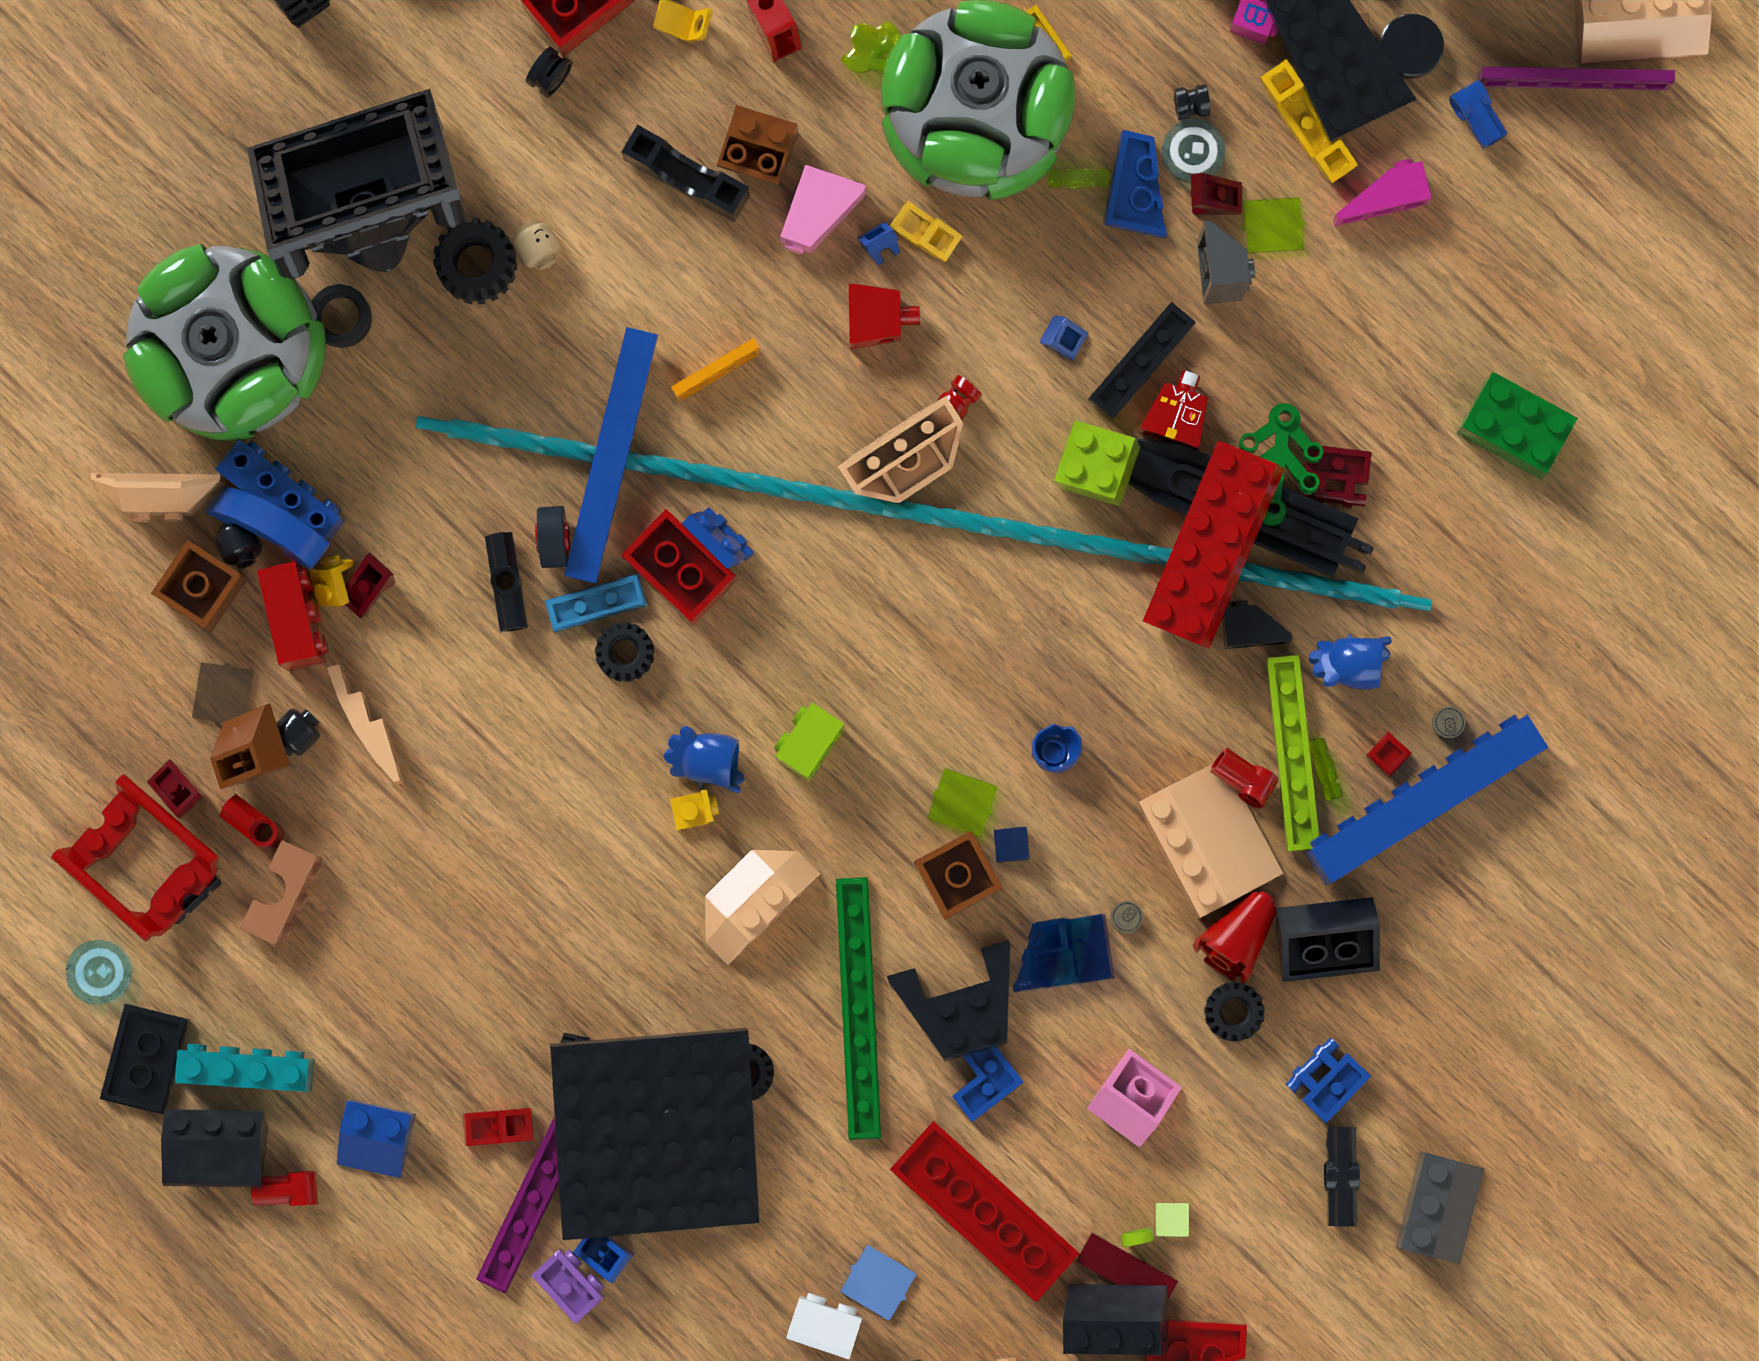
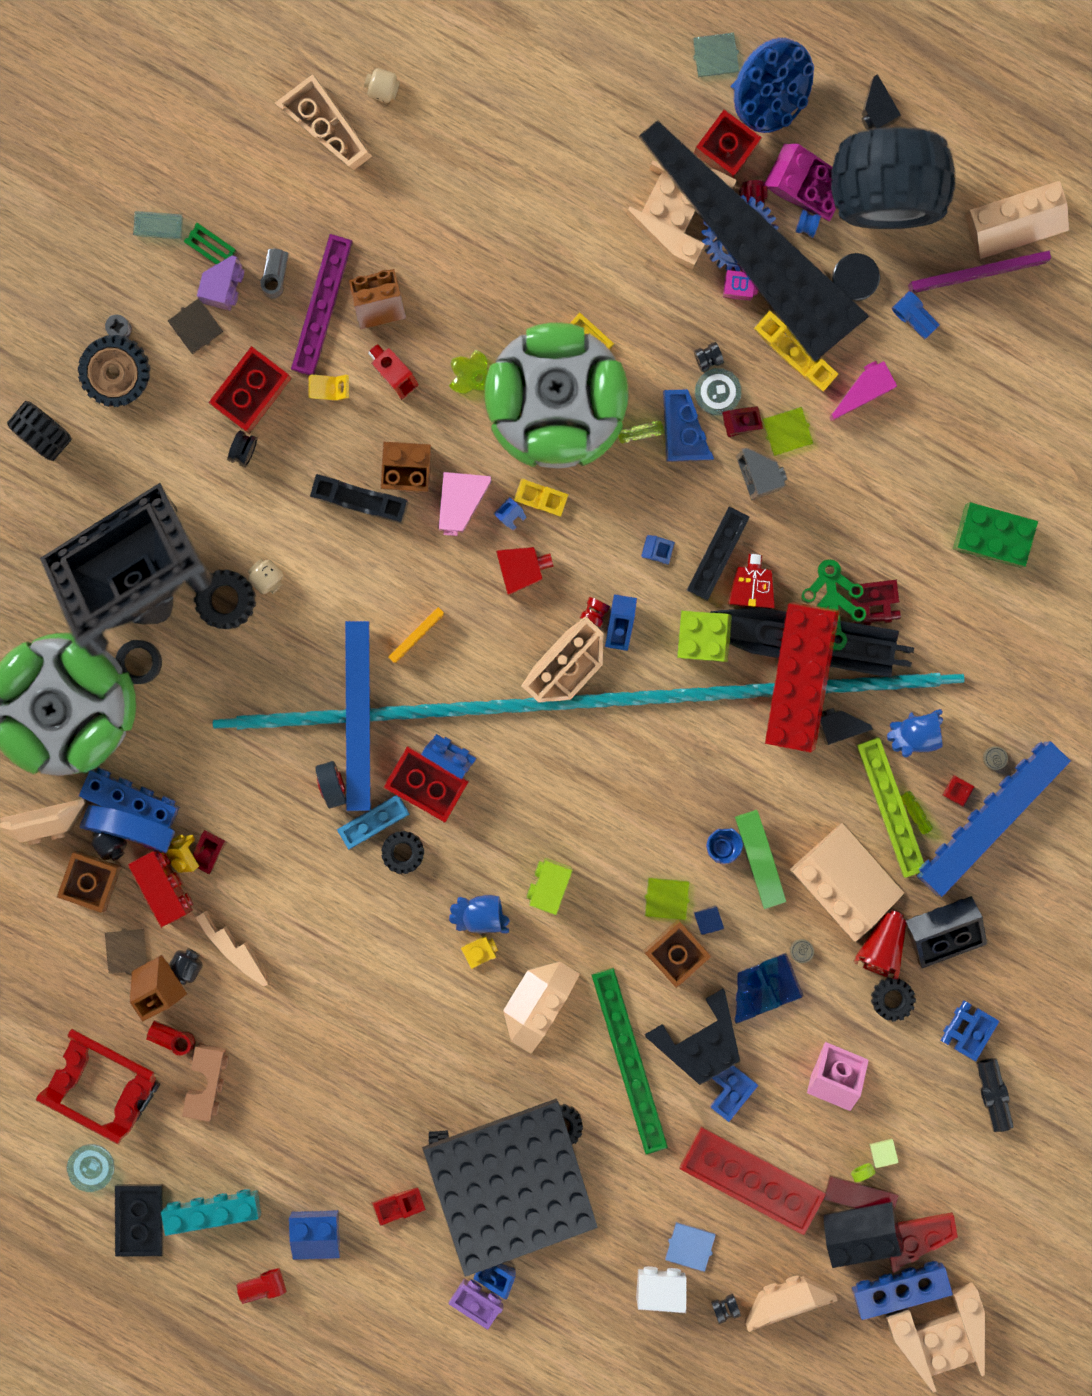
camera: 15 degrees left, 5 degrees up
(175, 789) = (111, 1028): dark red slope -> none
(213, 1148) = (204, 1273): black slope -> none
(508, 602) = (313, 838): black piece -> none
(523, 1217) = (432, 1264): magenta tile -> none
(990, 419) = (621, 622): none -> blue slope
(1100, 778) = (760, 859): none -> bright green slope
(1251, 782) = (867, 835): red piece -> none
(1439, 1207) = (1067, 1100): dark grey slope -> none

